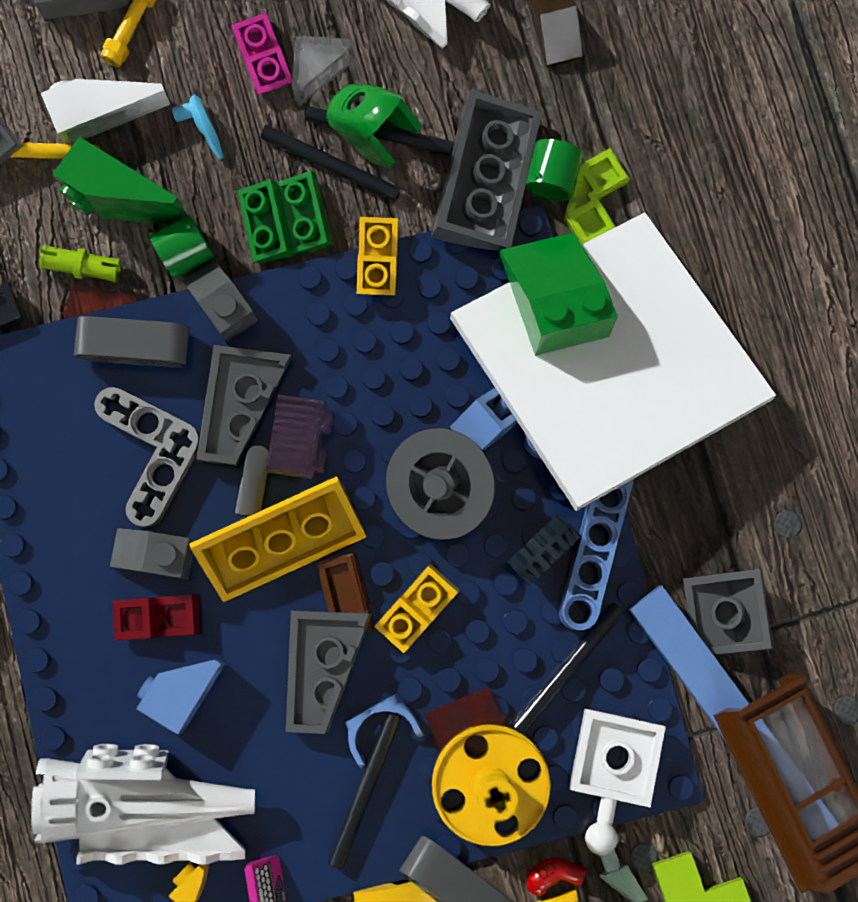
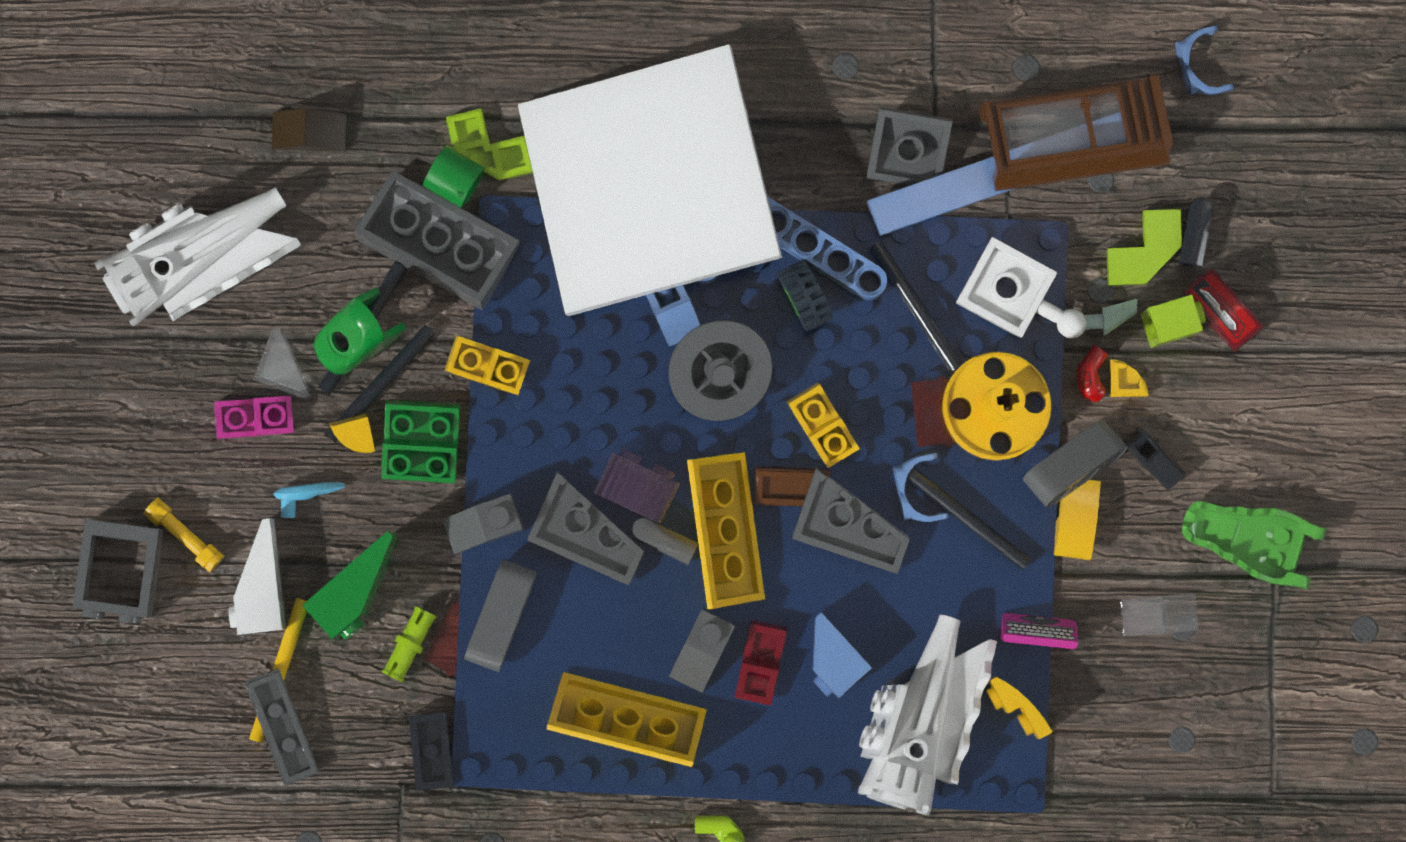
camera: 70 degrees left, 5 degrees up
(56, 498) = (627, 719): none -> yellow slope
(161, 439) = (598, 614): light grey beam -> none
(181, 246) = (423, 544): green piece -> none
(272, 150) = (354, 433): none -> yellow tile
(558, 293) = (575, 211): green slope -> none

